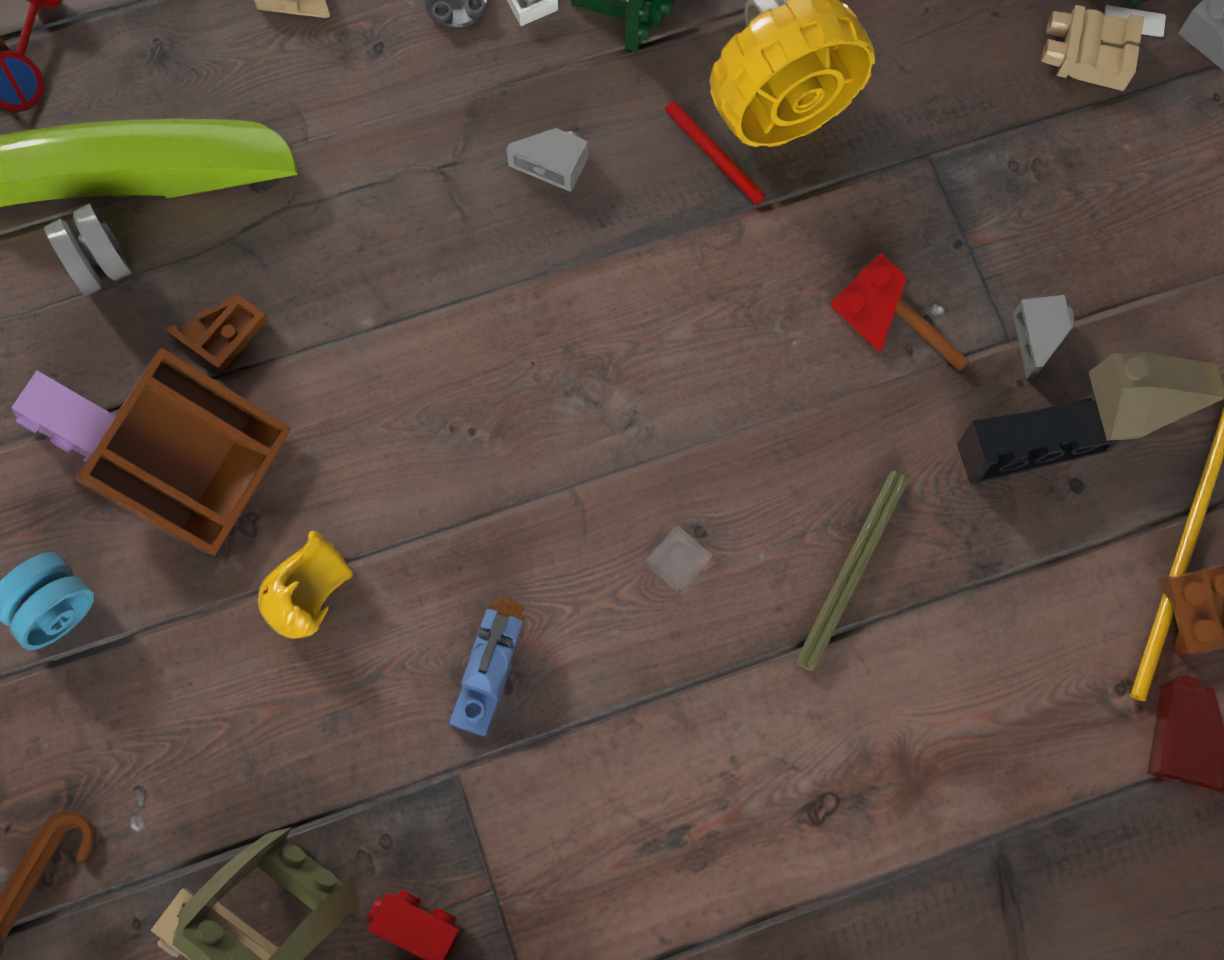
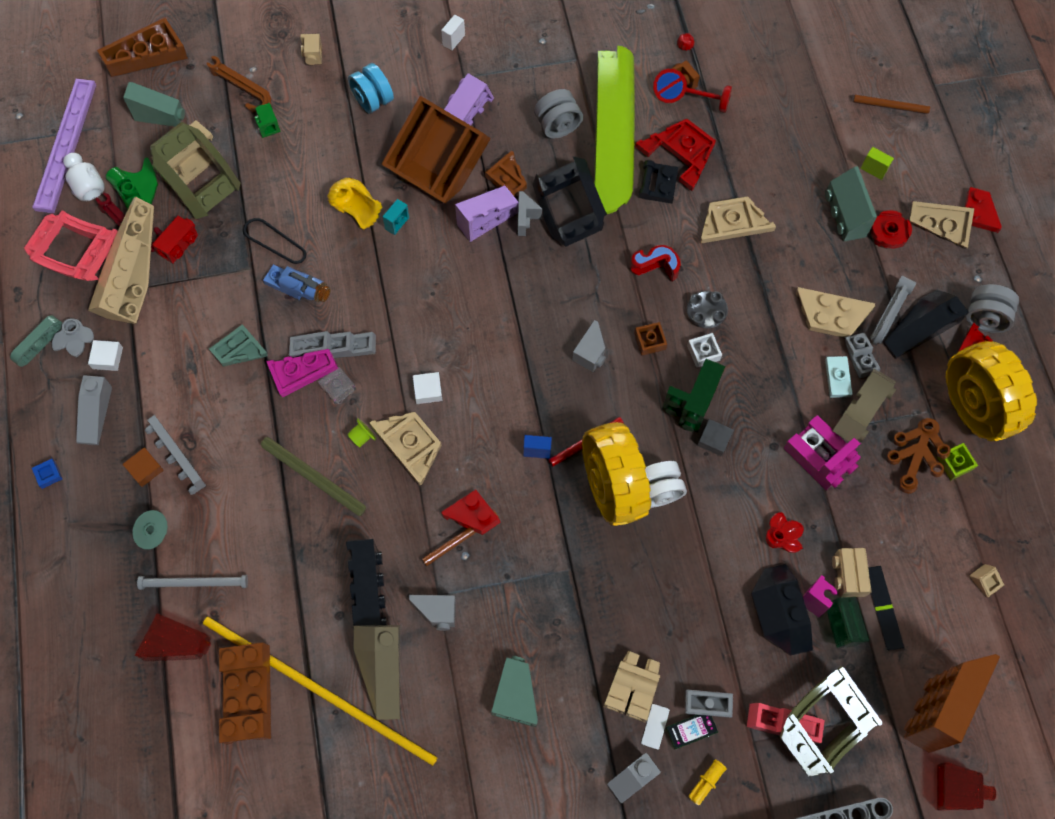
camera: 95 degrees right, 5 degrees down
(117, 806) = (266, 120): none -> green brick
(135, 46) = (686, 143): none -> red wing
(215, 79) = (664, 184): none -> black plate
(227, 236) = (558, 180): none -> black wedge
(289, 292) = (527, 210): none -> light grey slope
(304, 354) = (485, 212): none -> lavender wedge
(328, 510) = (396, 217): none -> teal piece
(366, 65) = (657, 257): none -> red animal
(409, 745) = (270, 249): none -> black piece
(520, 74) = (650, 338): none -> dark orange piece
(602, 583) = (340, 344): none -> light grey slope
(631, 753) = (237, 348): none -> sand green wing
(660, 406) = (427, 388): none -> white piece
(663, 625) = (300, 371): none -> dark pink wing
(743, 215) = (537, 446): none -> blue piece
(766, 419) = (410, 443): none -> tan wing
(767, 498) = (361, 434): none -> lime piece
(858, 817) = (177, 454): none -> light grey hinge
(893, 875) = (143, 467): none -> dark orange piece
(1011, 830) = (156, 529): none -> sand green piece
(1080, 734) = (143, 582): none -> light grey bar
(1142, 201) = (515, 693): none -> sand green slope

